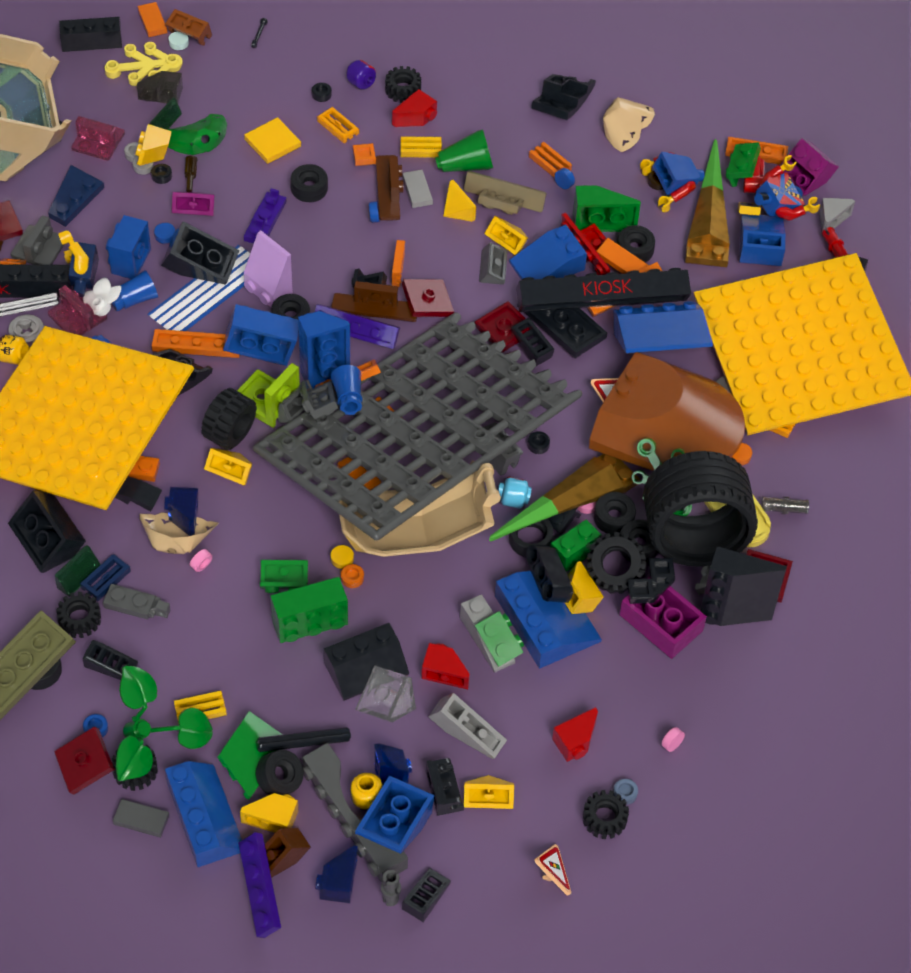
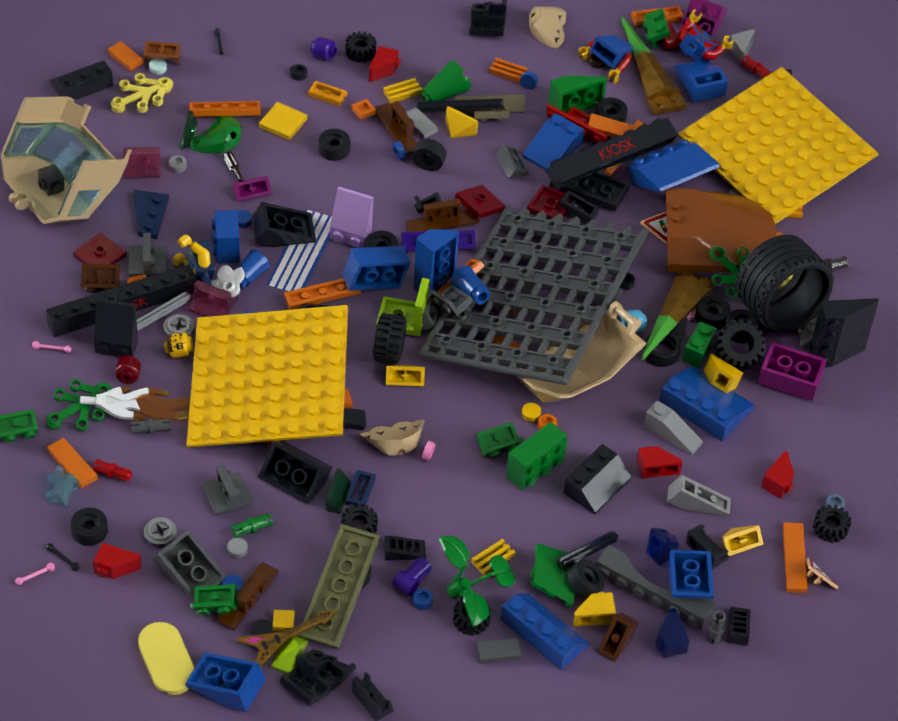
camera: 25 degrees left, 5 degrees down
(84, 760) = (433, 624): dark red plate -> none
(90, 700) = (409, 580): none -> dark purple piece
(135, 603) = (396, 499): dark grey hinge -> none
(144, 169) = (190, 171): light grey tile -> none
(153, 145) = (193, 152): yellow slope -> none
(161, 87) = (169, 107): clear smoke slope -> none
(161, 173) = (210, 174): black tile -> none
(183, 508) = (393, 417): clear blue slope -> none
(219, 107) = (228, 108): none -> orange tile
(259, 885) = (618, 662): dark purple plate -> none
(266, 215) = (314, 182): dark purple plate -> none
(365, 789) = (656, 568): yellow head -> none
(387, 695) = (629, 496): clear slope -> none
(398, 263) = (441, 182): orange tile -> none
(400, 226) = (433, 148): none -> black tyre
(469, 182) = (461, 105): none -> black axle
(499, 638) = (687, 427): bracket -> none
(506, 235) = (510, 136): yellow slope -> none
(538, 838) = (794, 557): none -> orange tile
(549, 573) = (696, 369): black beam -> none
(649, 590) = (777, 353): black tile -> none
(673, 739) = (848, 455): bright pink tile -> none
(749, 208) = (678, 60): yellow tile -> none

